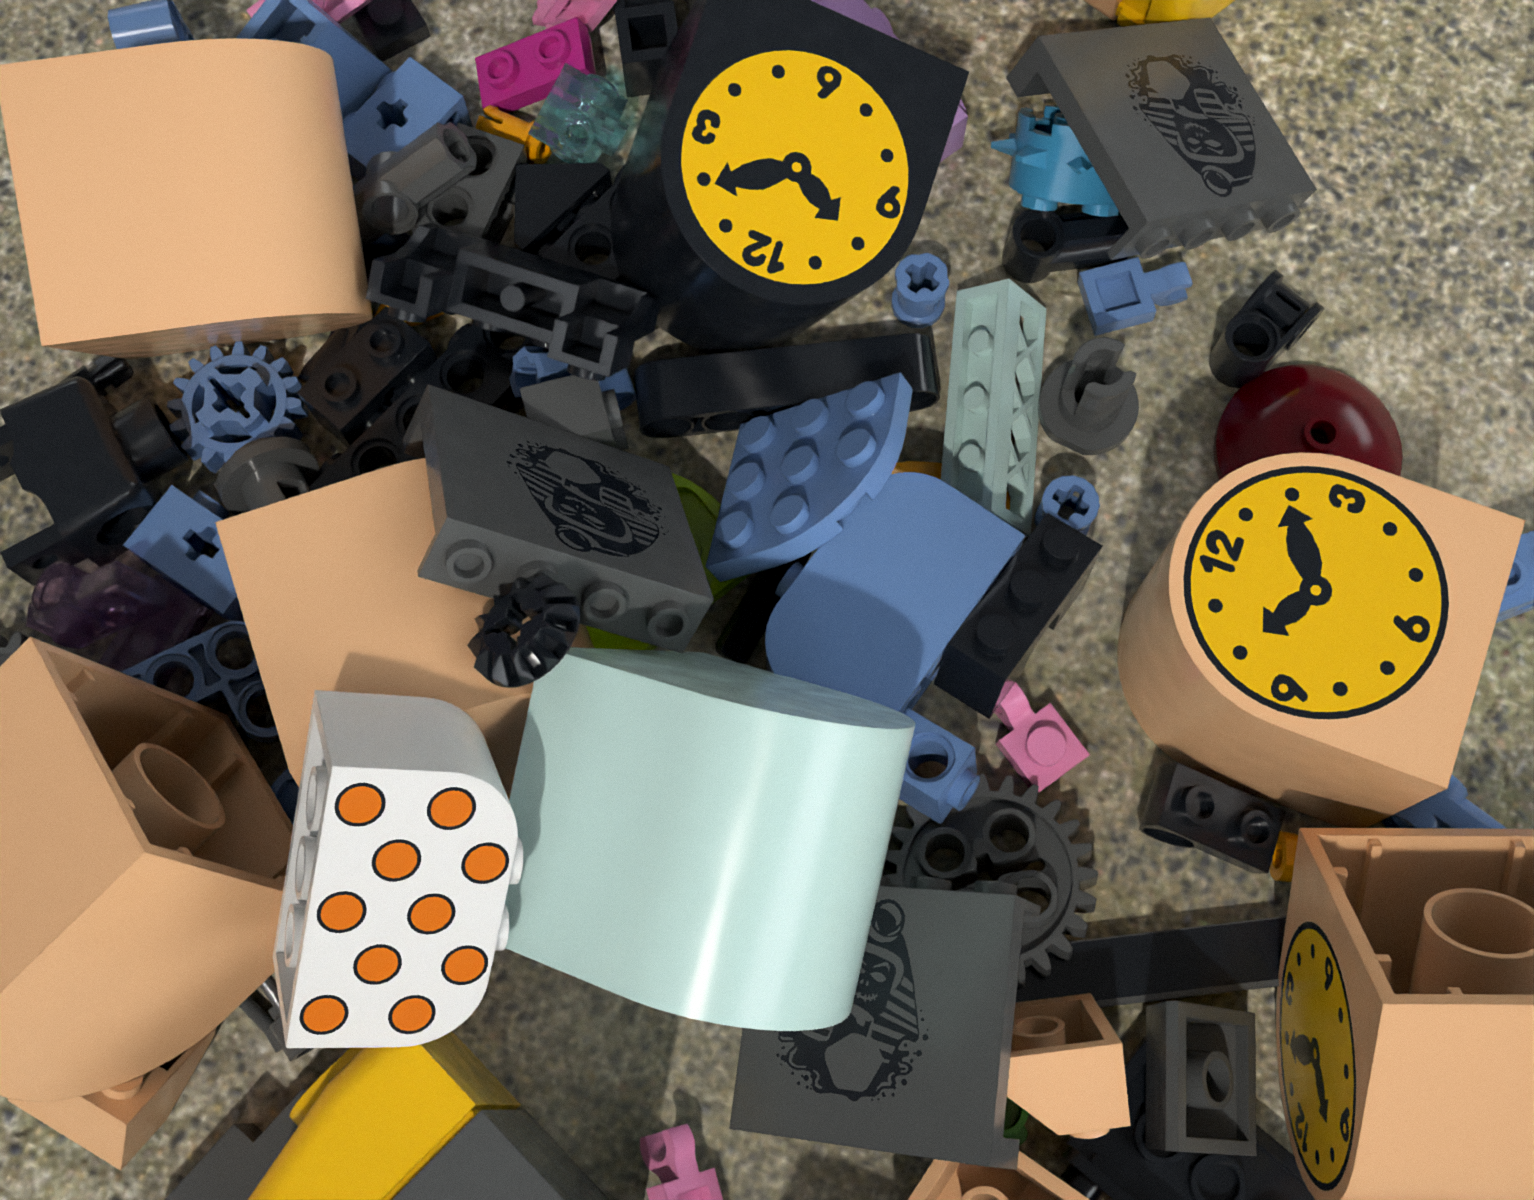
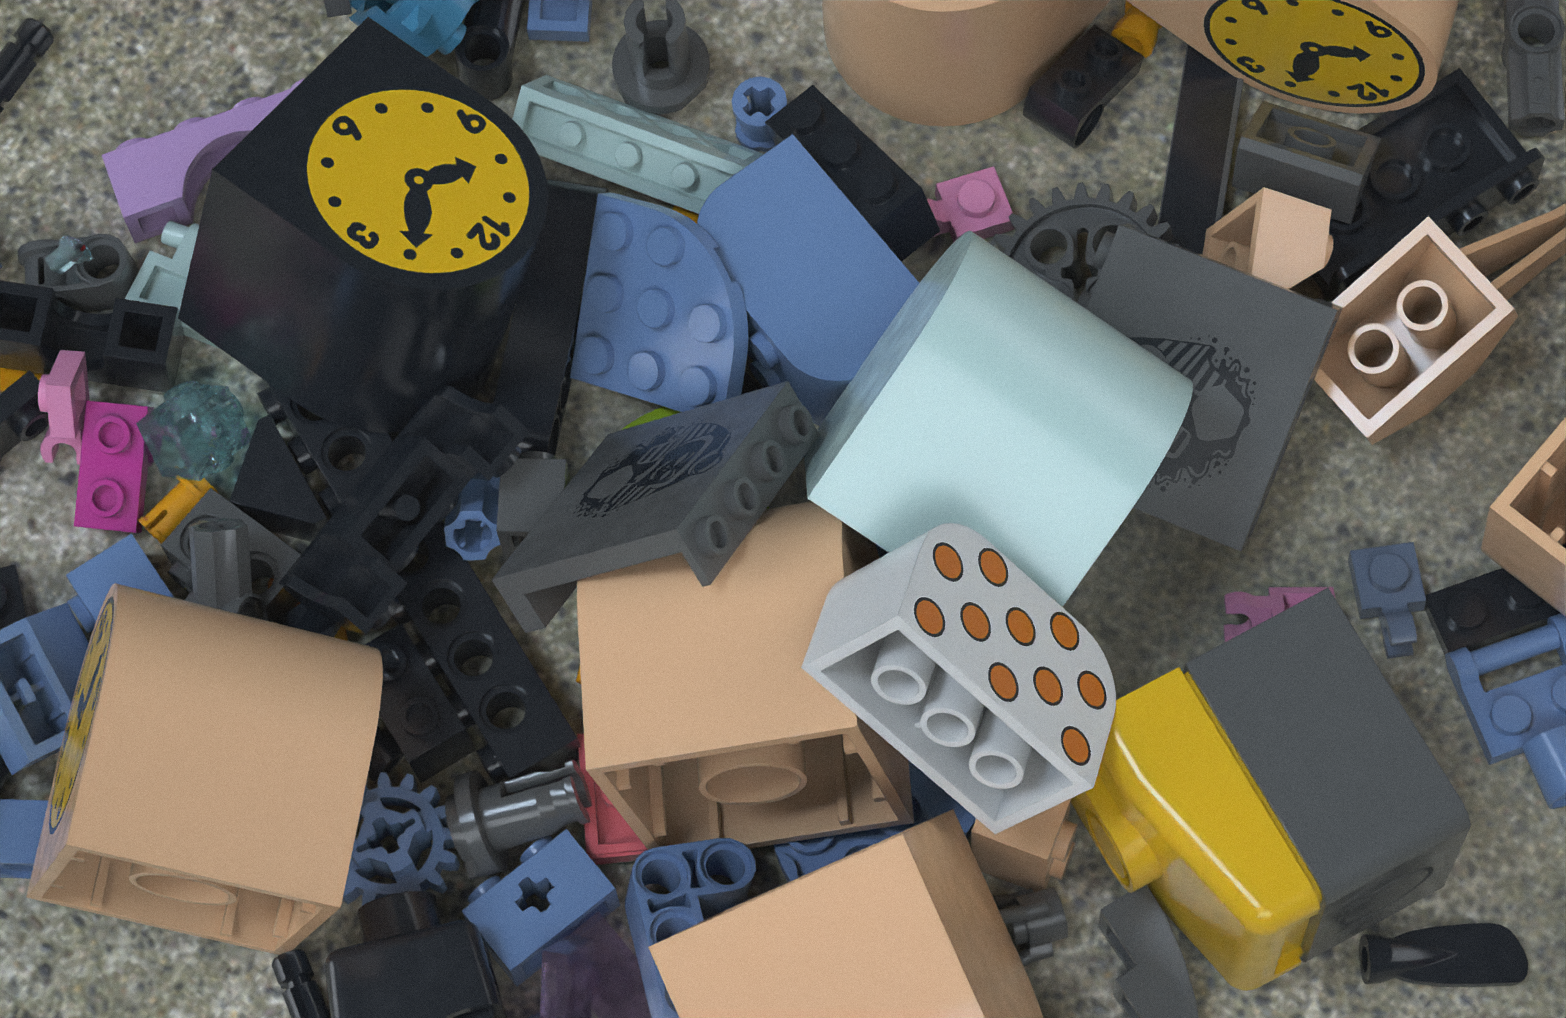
camera: 70 degrees left, 5 degrees down
(541, 640) = (809, 481): black gear -> none

